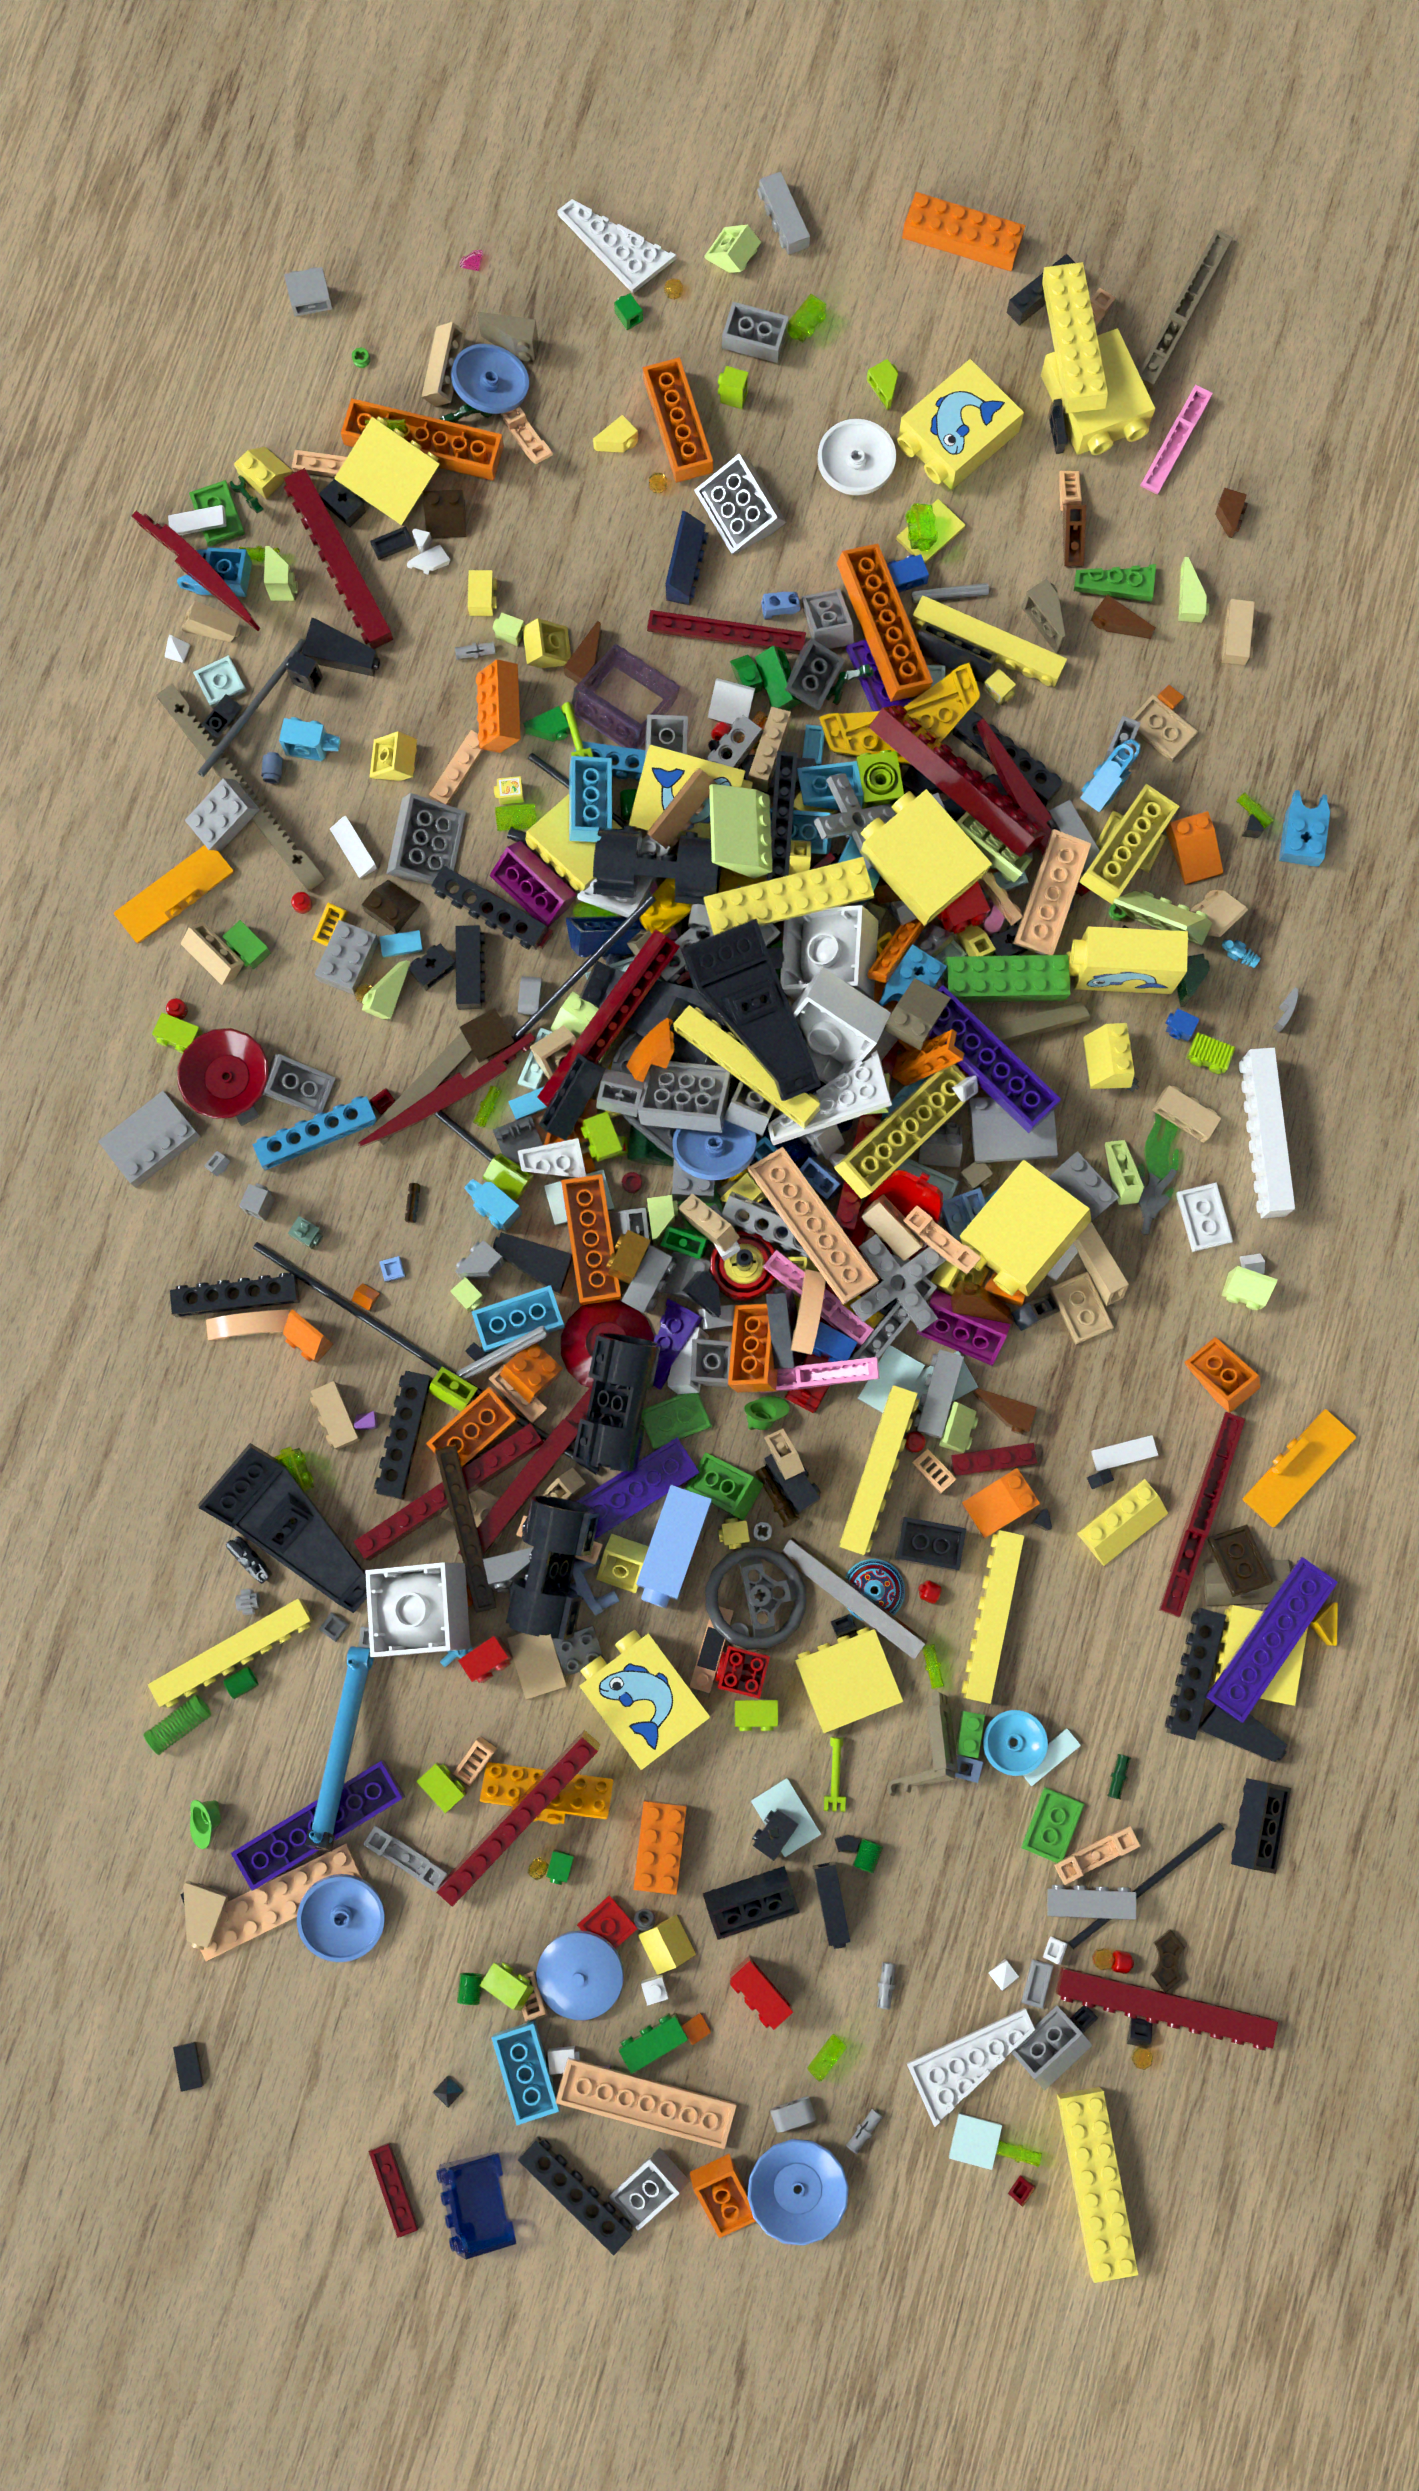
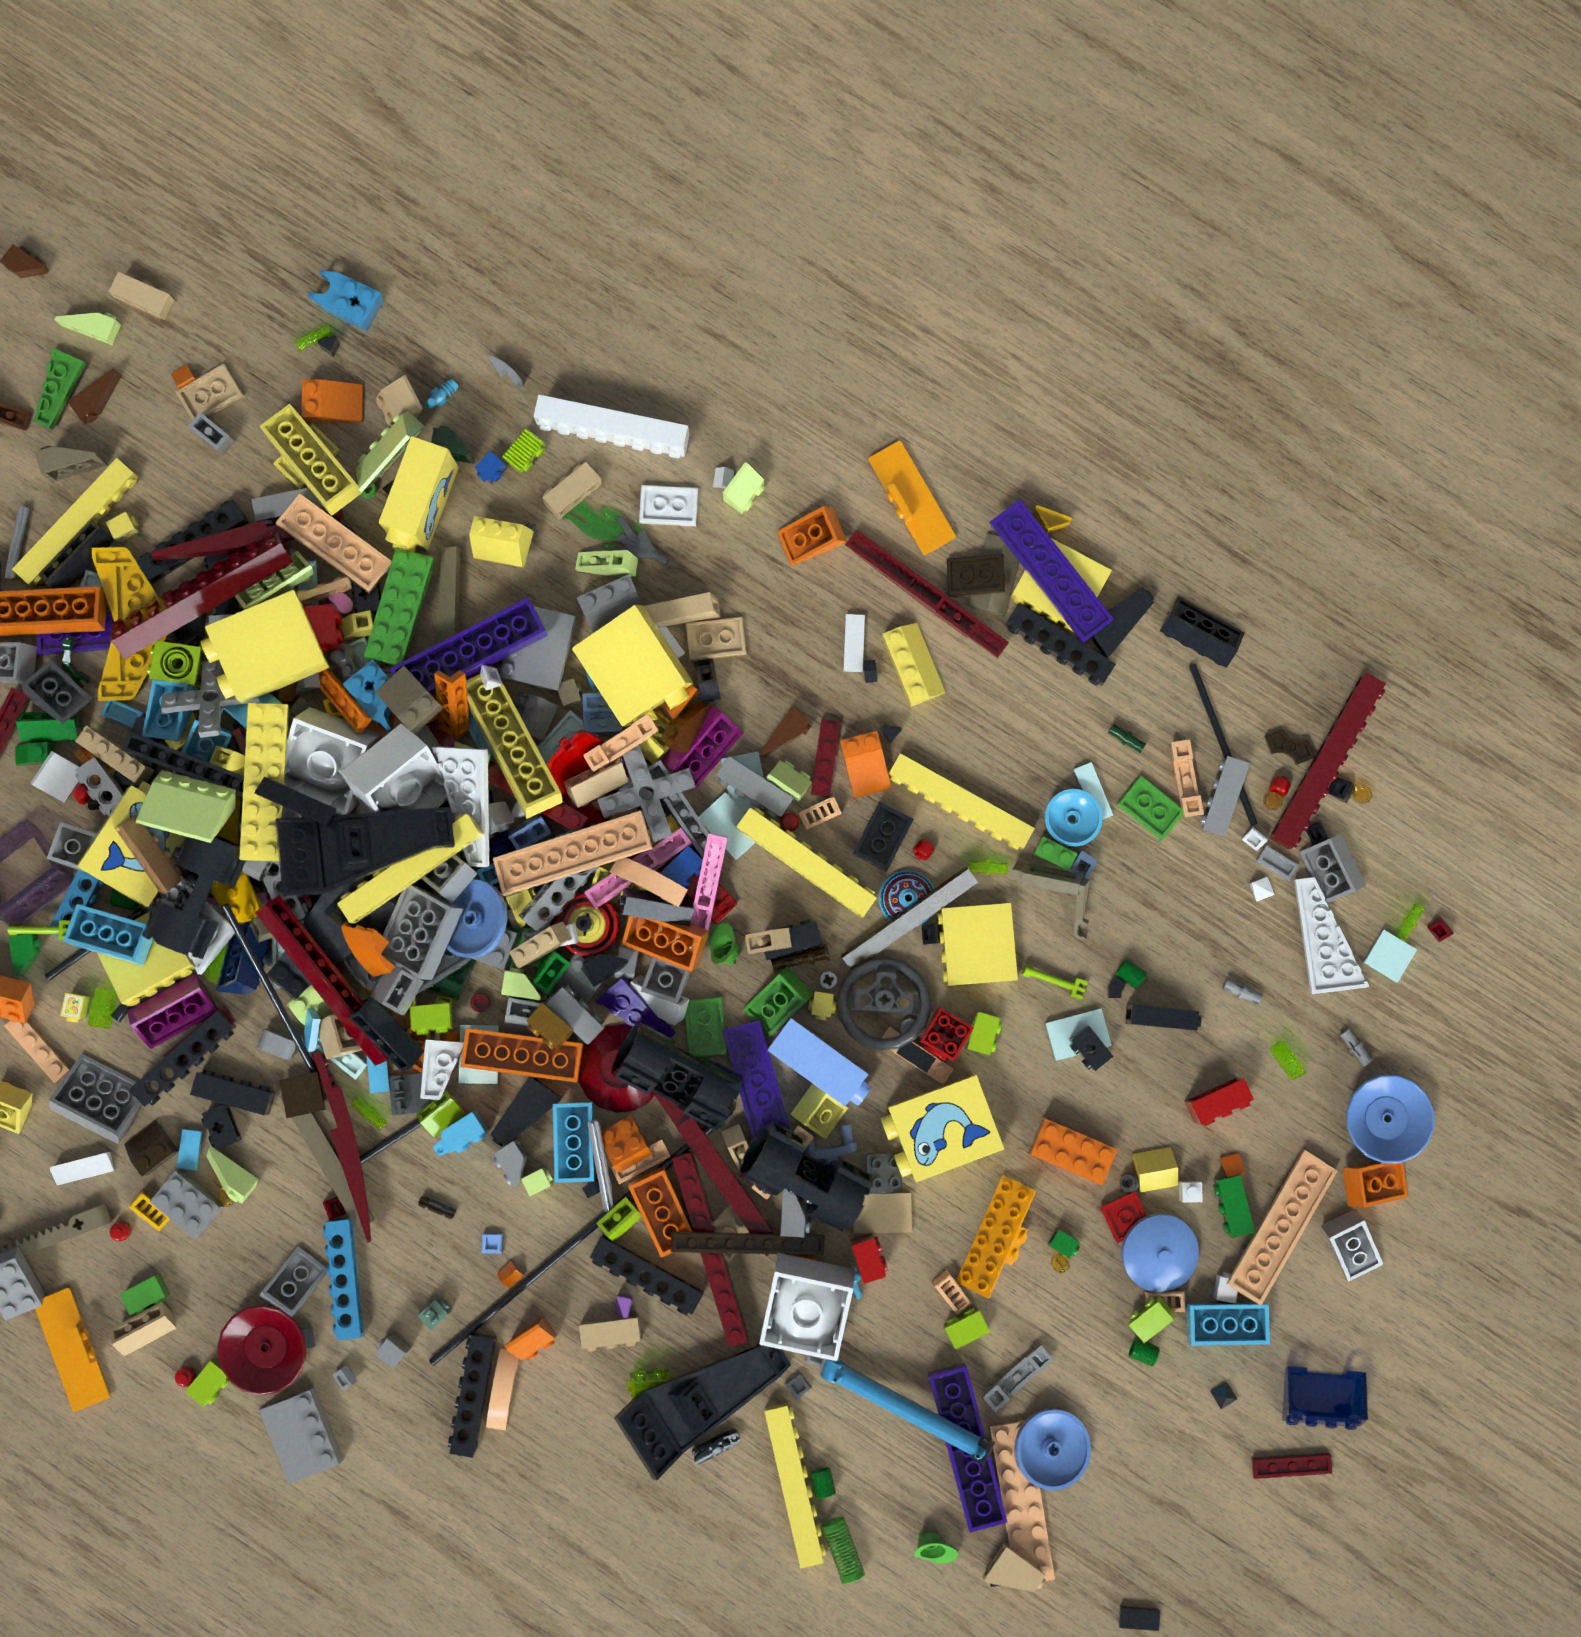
camera: 75 degrees left, 5 degrees up
(247, 1601) = (753, 1457): light grey gear -> none
(518, 1818) = (1013, 1268): dark red brick -> none
(554, 1023) = (311, 1029): none -> medium azure tile
(610, 2239) = (1384, 1289): black brick -> none
(750, 1902) = (1141, 1086): black slope -> none
(779, 932) = (295, 801): none -> black slope
(793, 2114) = (1325, 1103): light grey beam -> none
(1097, 2184) = (1452, 865): light yellow brick -> none
(1110, 776) = (242, 455): brick -> none

